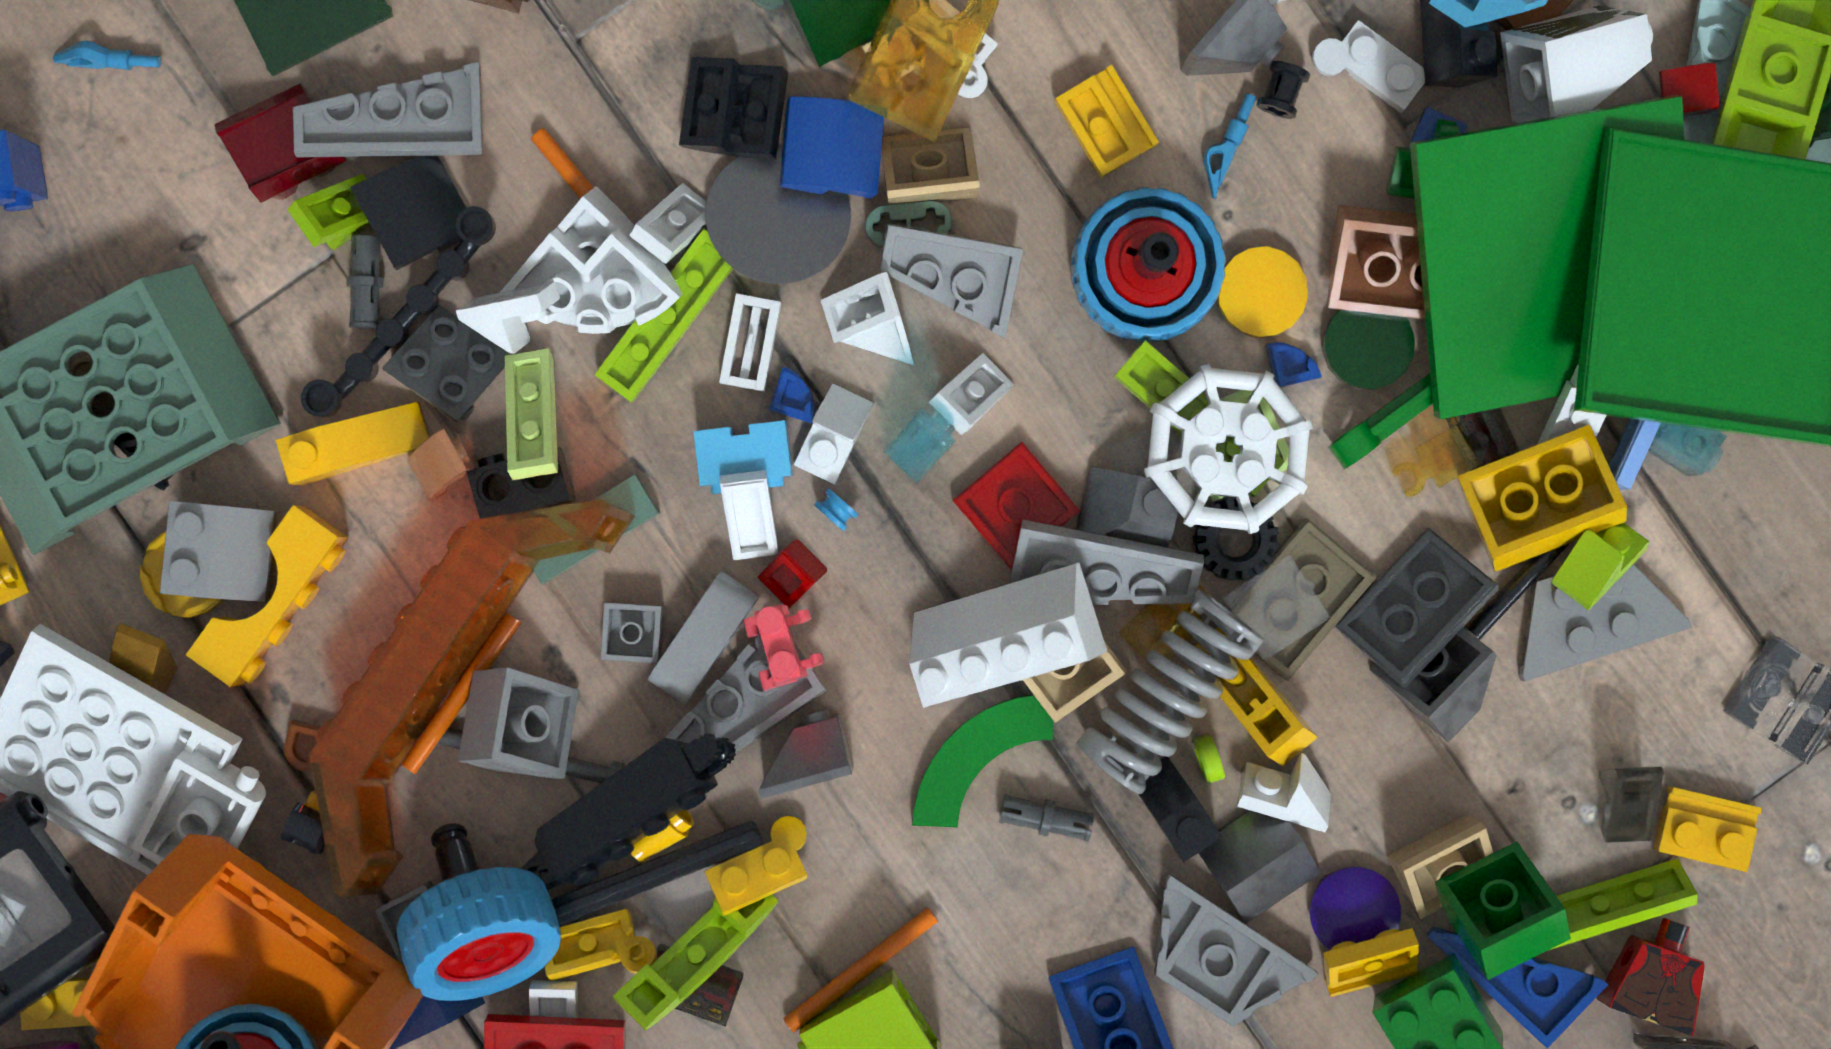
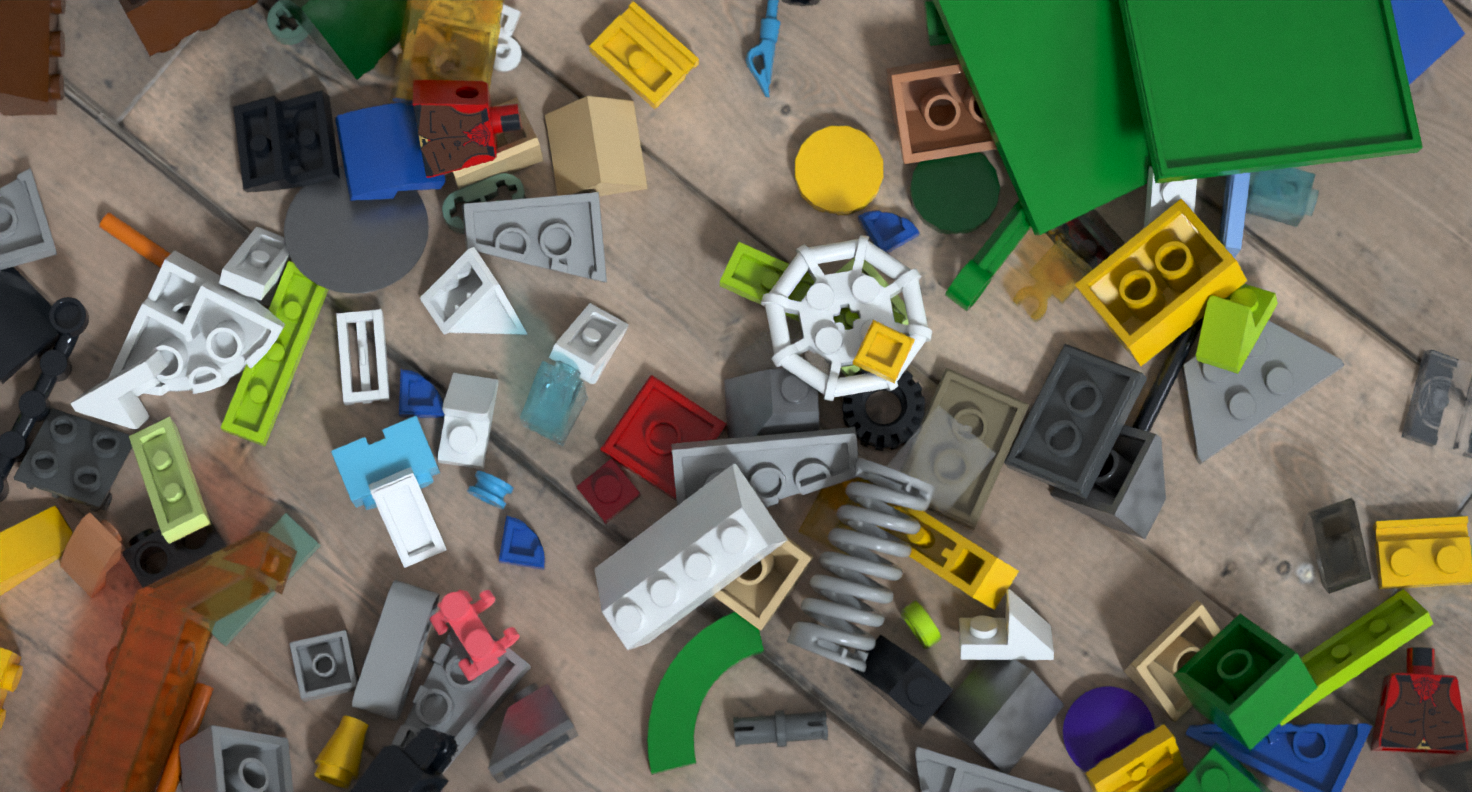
camera: 15 degrees left, 10 degrees down
(626, 721) = (342, 754): none -> yellow cone
(792, 573) = (465, 564): red slope -> none
(850, 570) = (521, 546): none -> blue tile
(906, 146) = (459, 124): none -> torso
(948, 542) = (608, 491): none -> dark red plate
(1032, 201) = (596, 147): none -> tan slope
(1147, 265) = (721, 174): dark azure wheel -> none
(1255, 496) = (883, 351): none -> yellow tile

